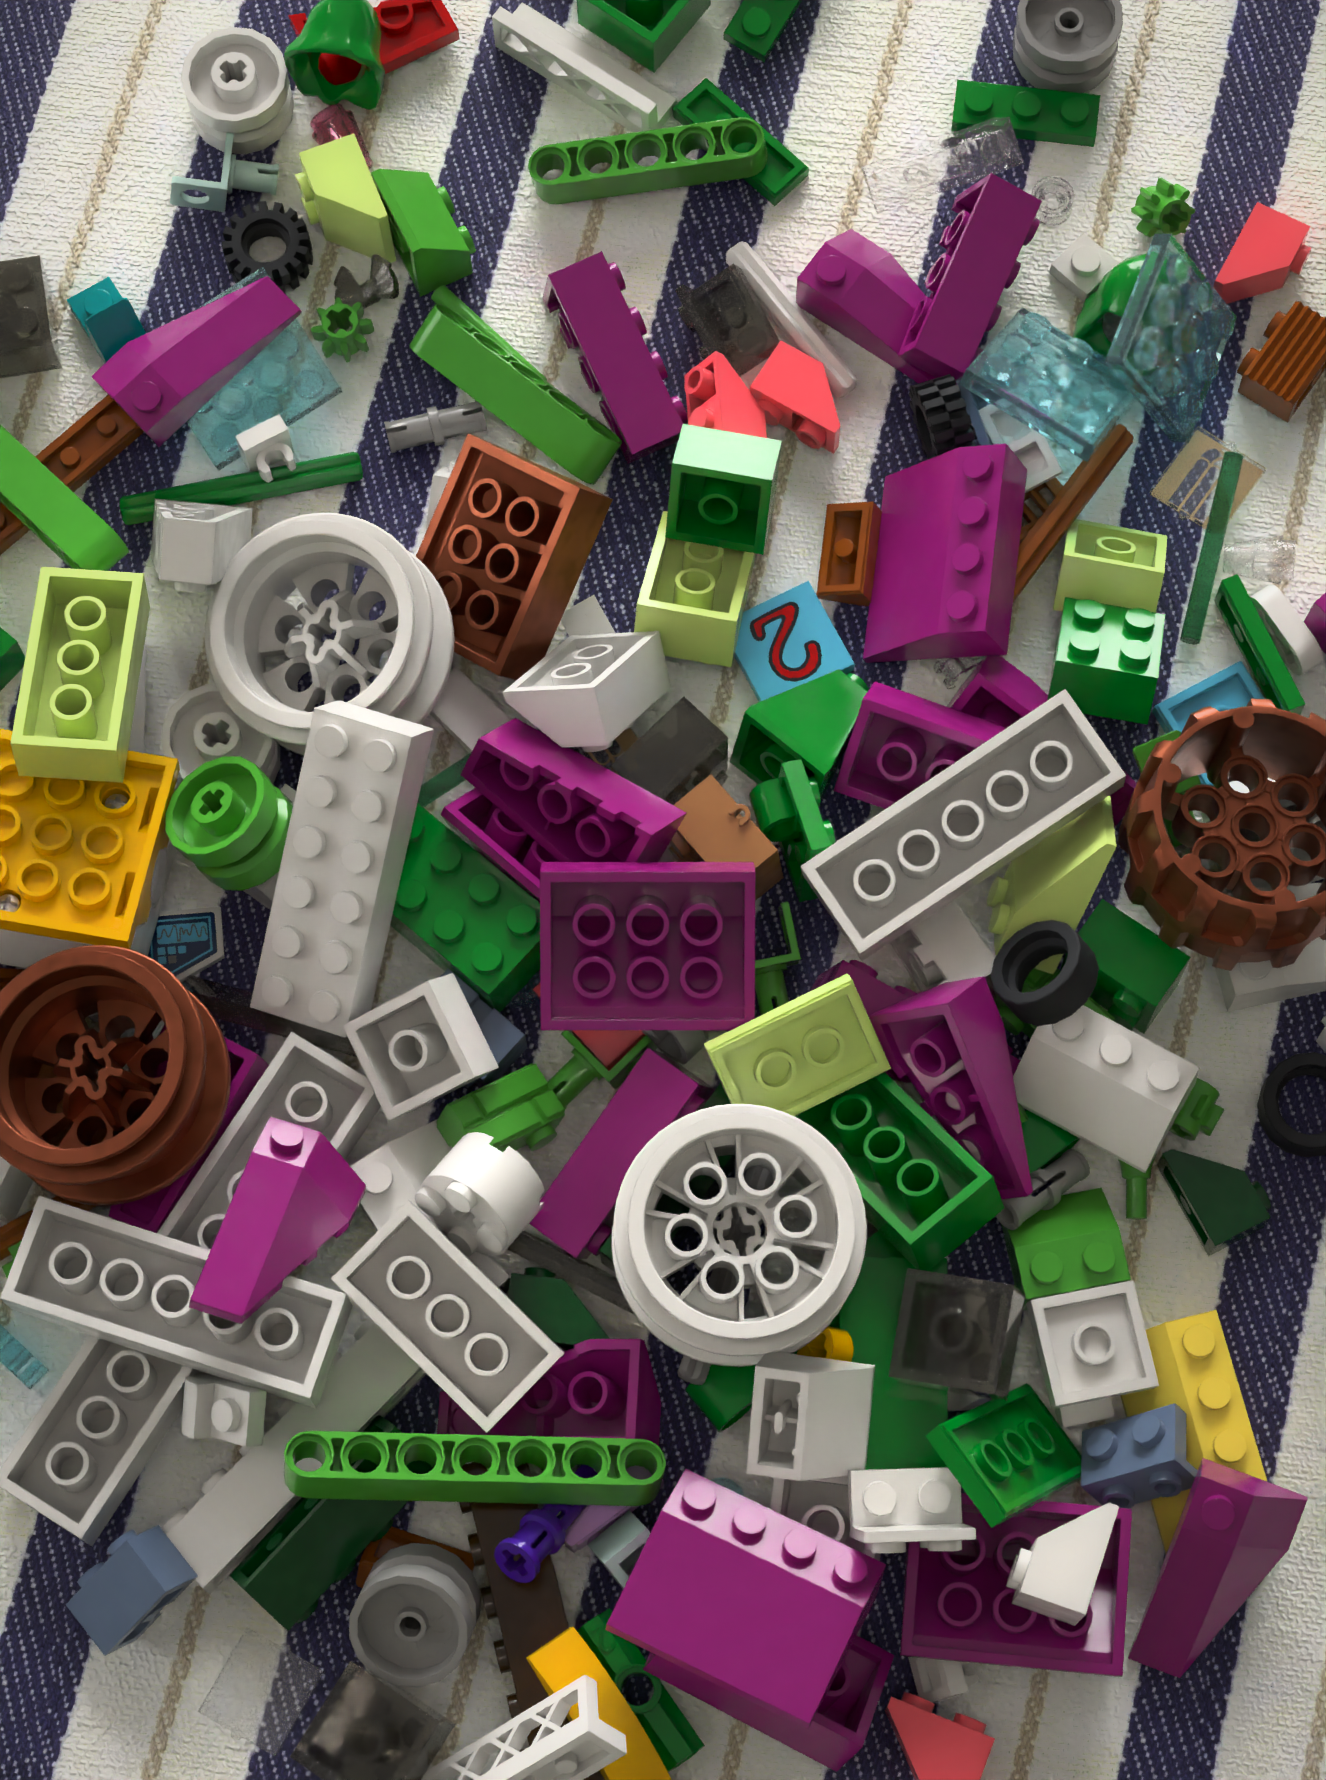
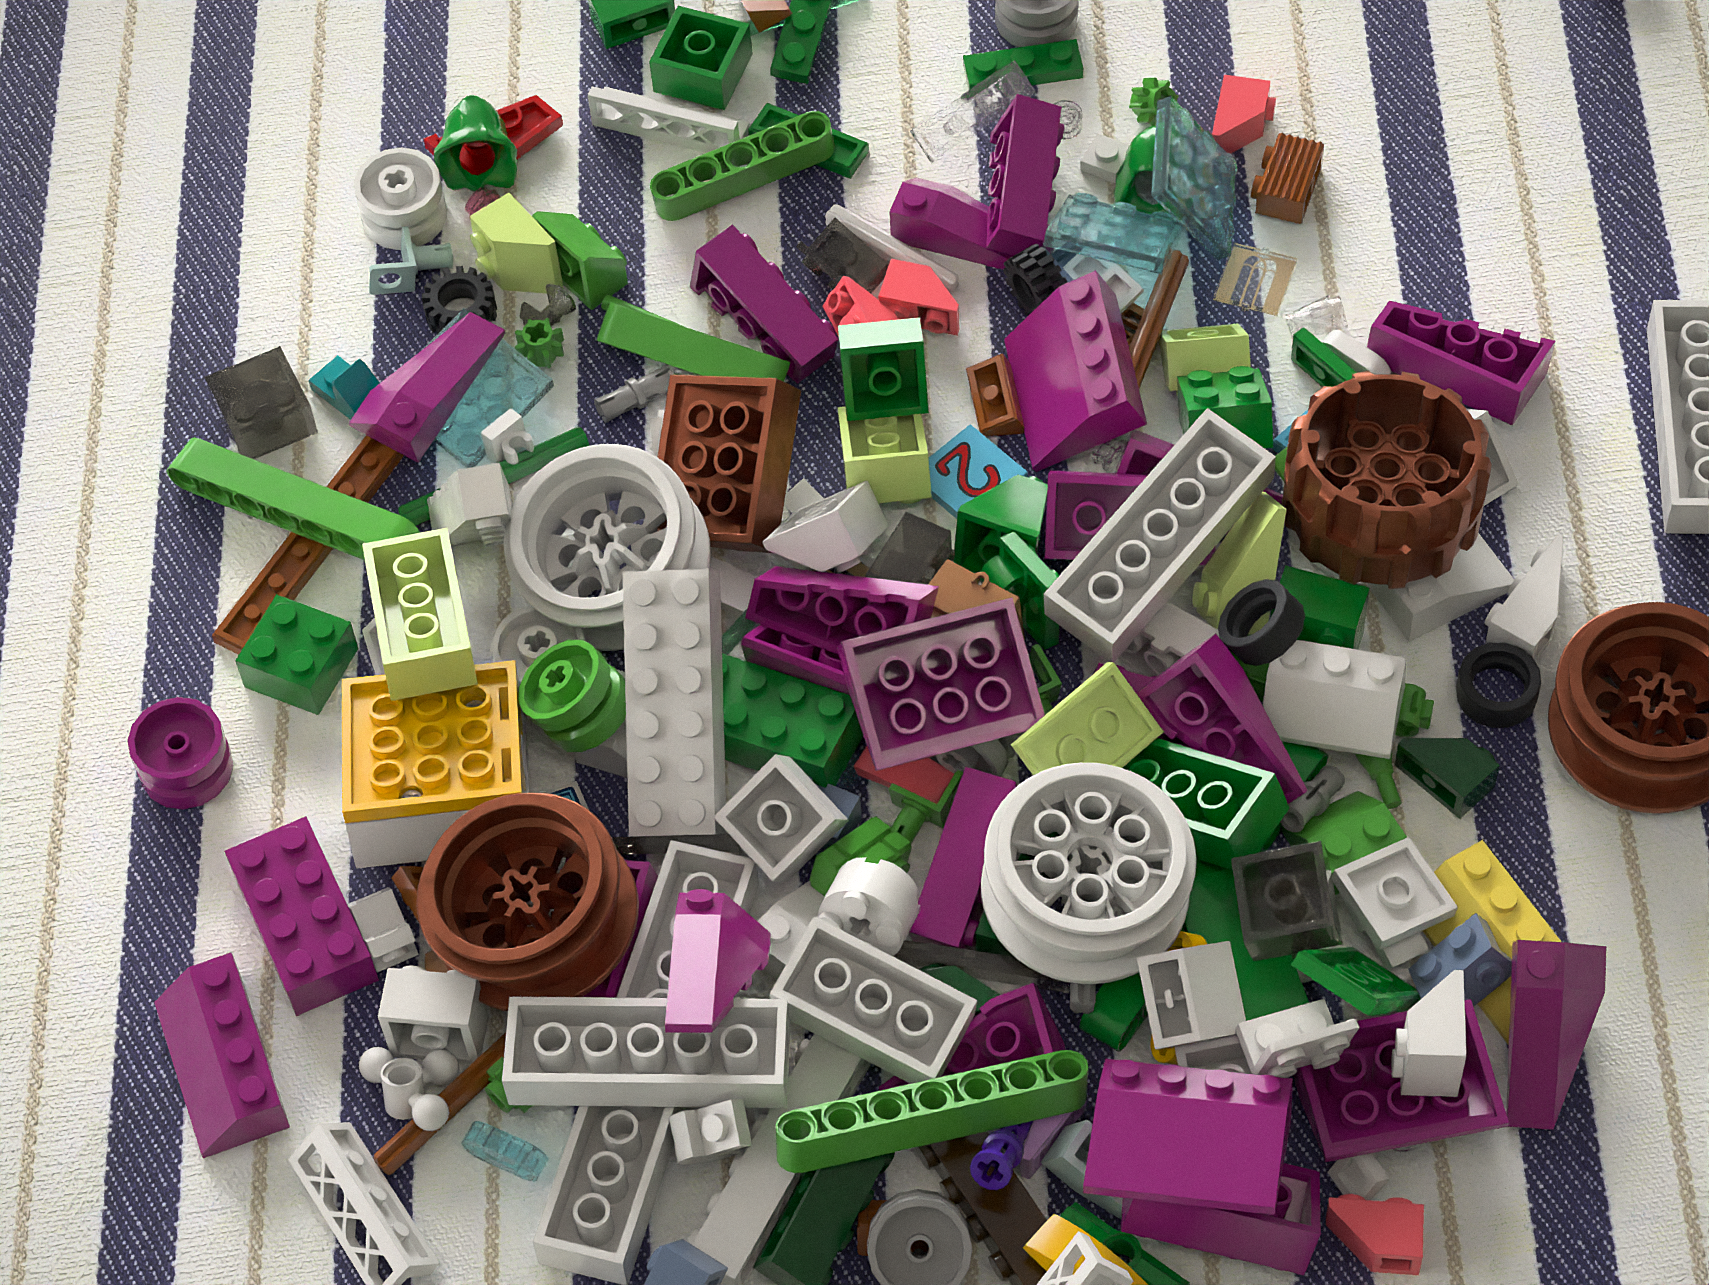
camera: 15 degrees left, 15 degrees down
(1211, 548) = (1276, 321): clear green bar -> none

